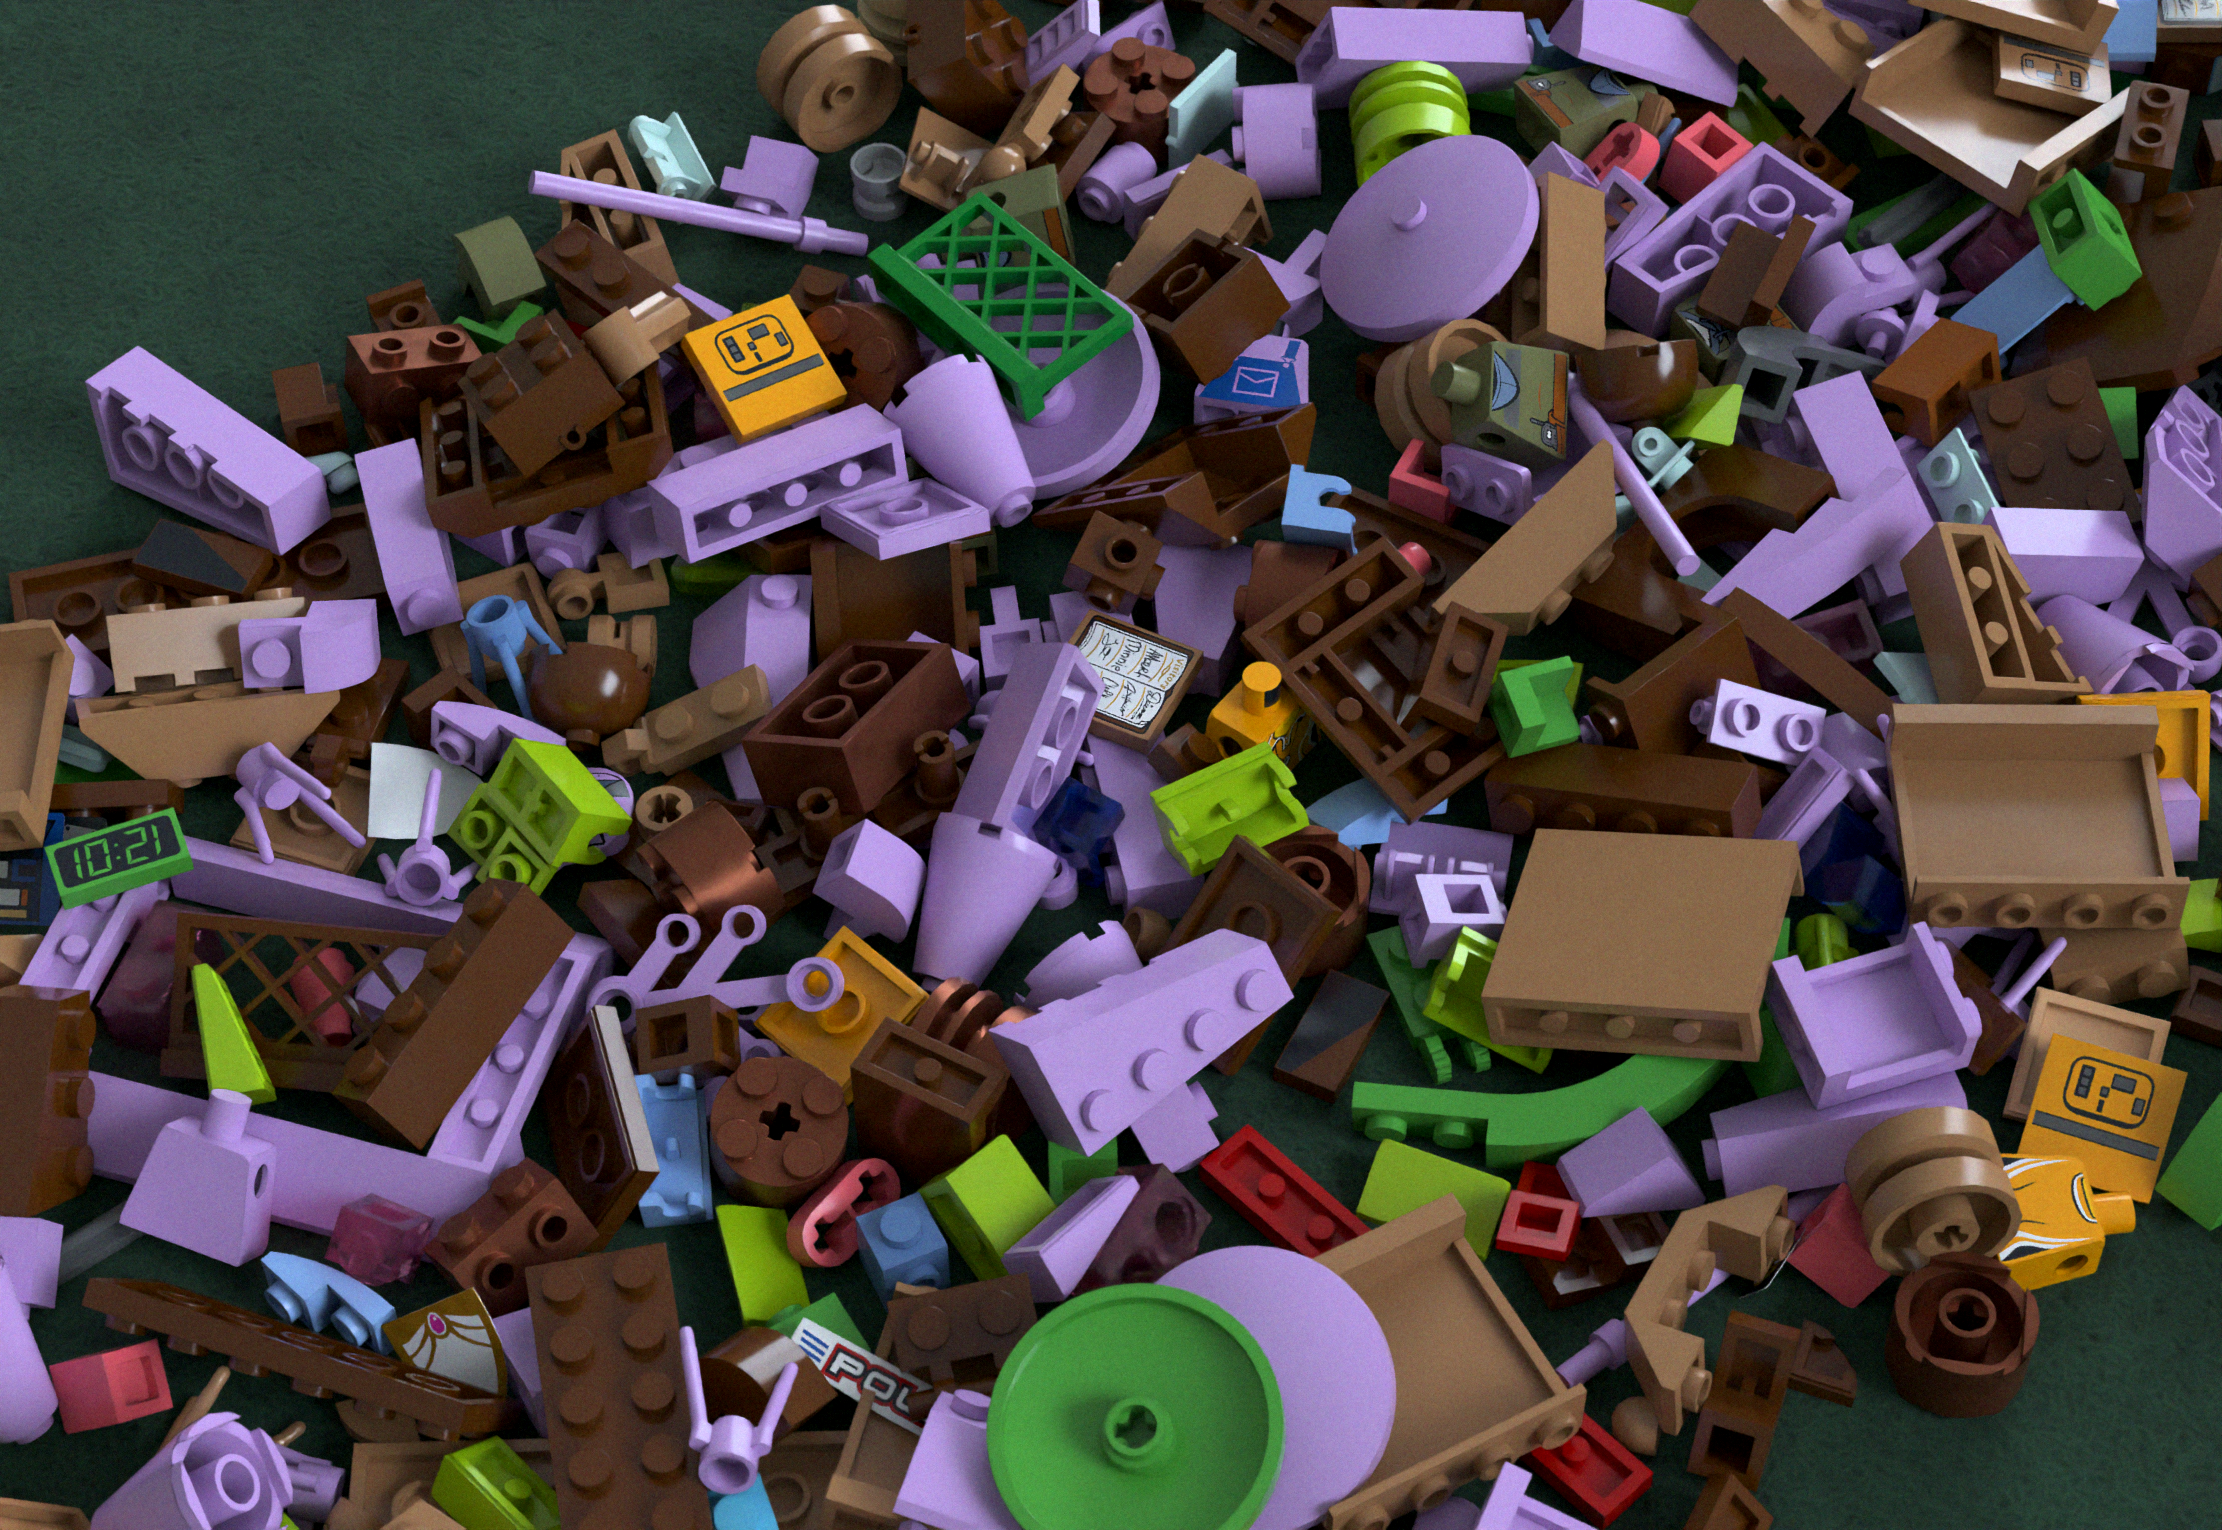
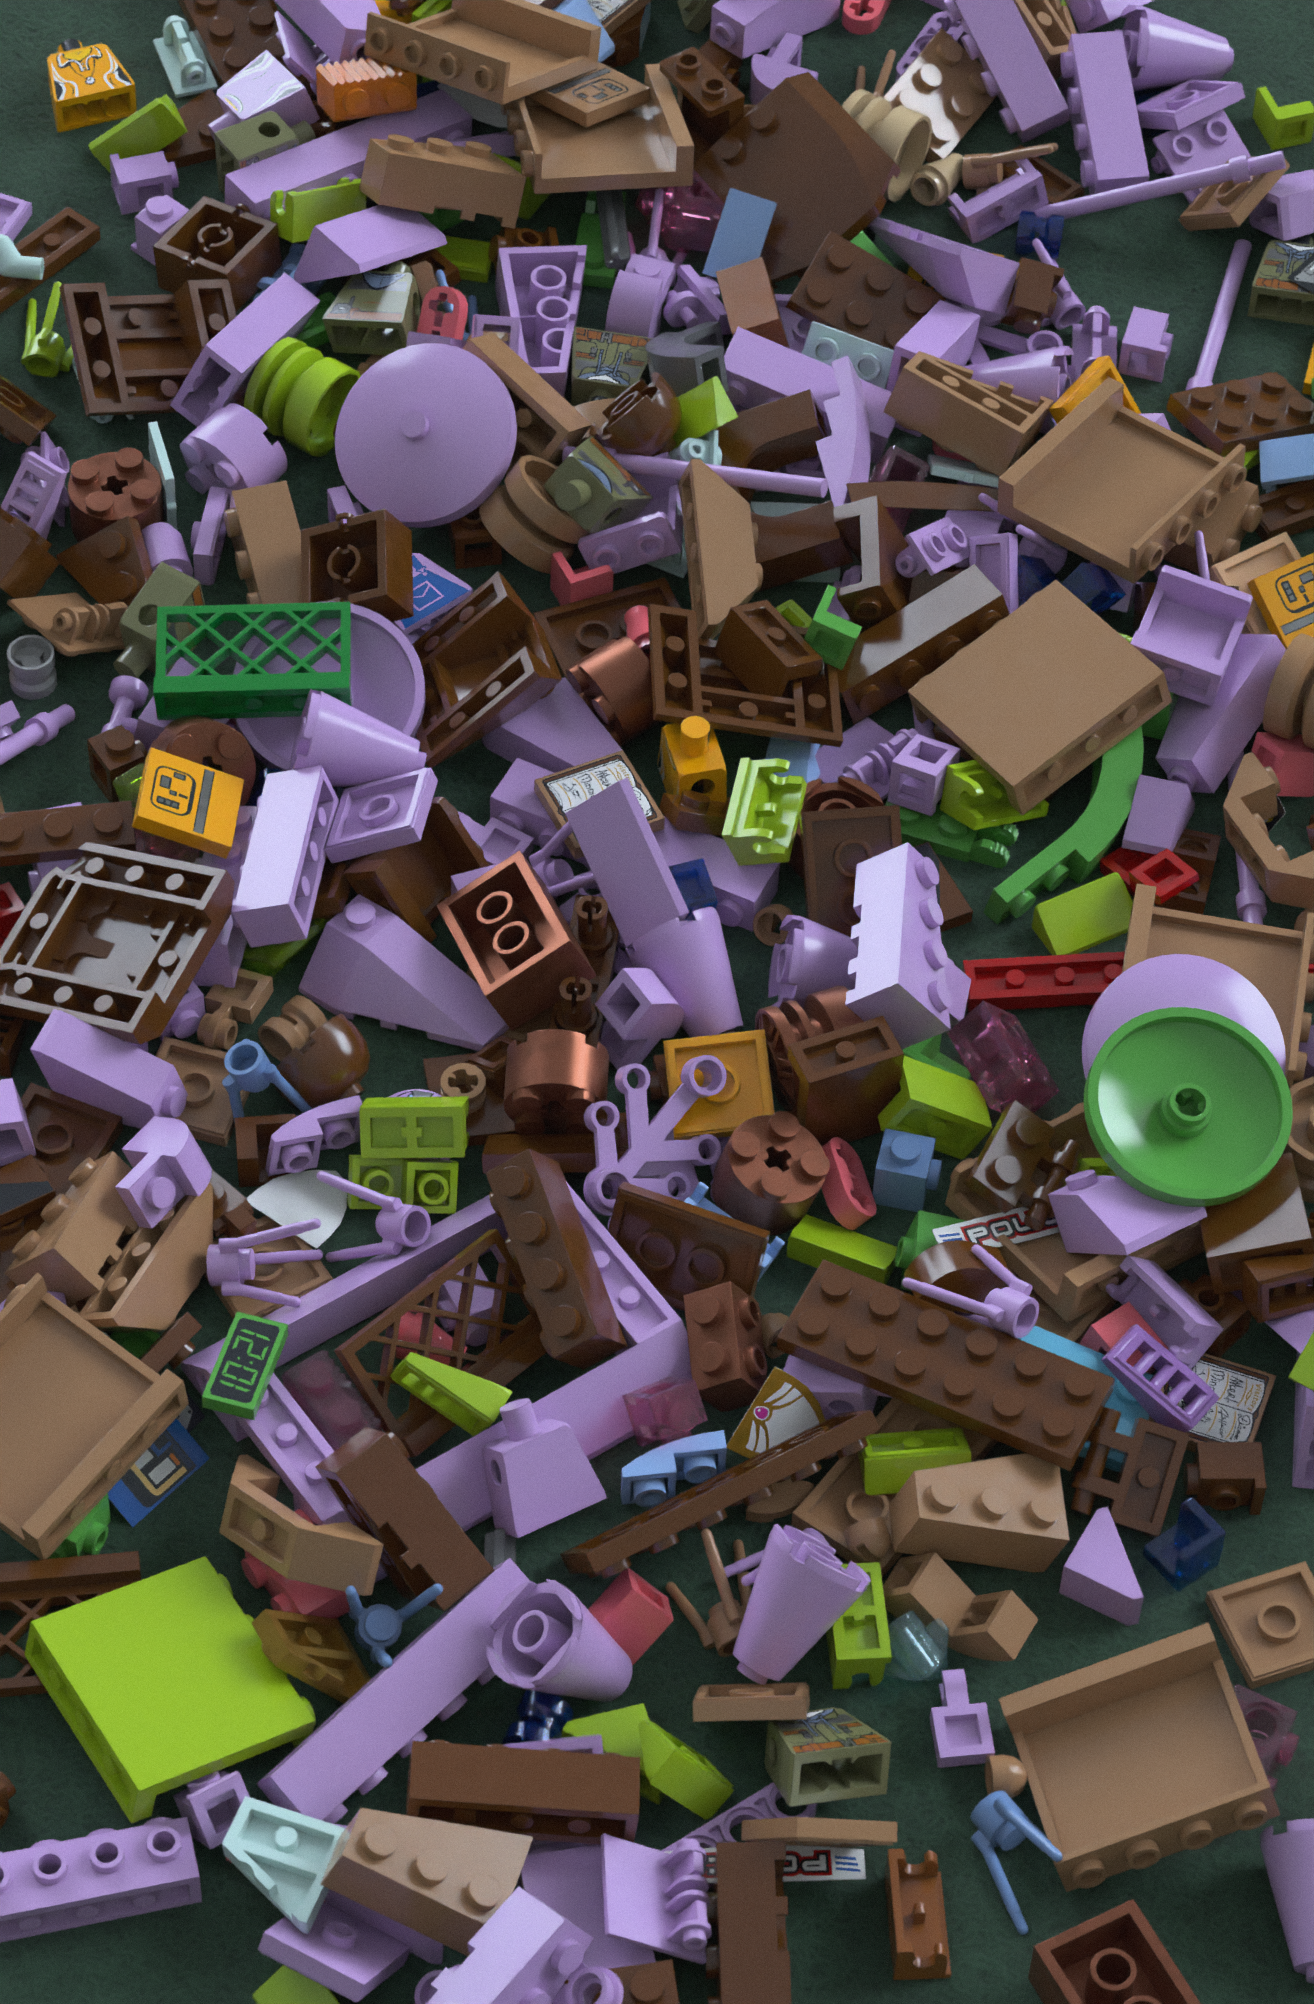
camera: 55 degrees left, 0 degrees up
(539, 392) = (103, 916): reddish brown brick -> none
(636, 337) = (113, 840): medium nougat piece -> none
(691, 726) = (411, 1027): medium nougat hinge -> none
(702, 1024) = (686, 1151): reddish brown brick -> none
(1028, 128) = (94, 559): medium nougat plate -> none
(1070, 1237) = (988, 1071): lavender slope -> none
(1115, 564) = (521, 743): reddish brown brick -> none
(1309, 522) = (583, 628): light blue hinge -> none
(1701, 157) = (480, 280): coral brick -> none
(1753, 274) = (606, 321): reddish brown panel -> none
(2084, 240) = (748, 168): bright green brick -> none

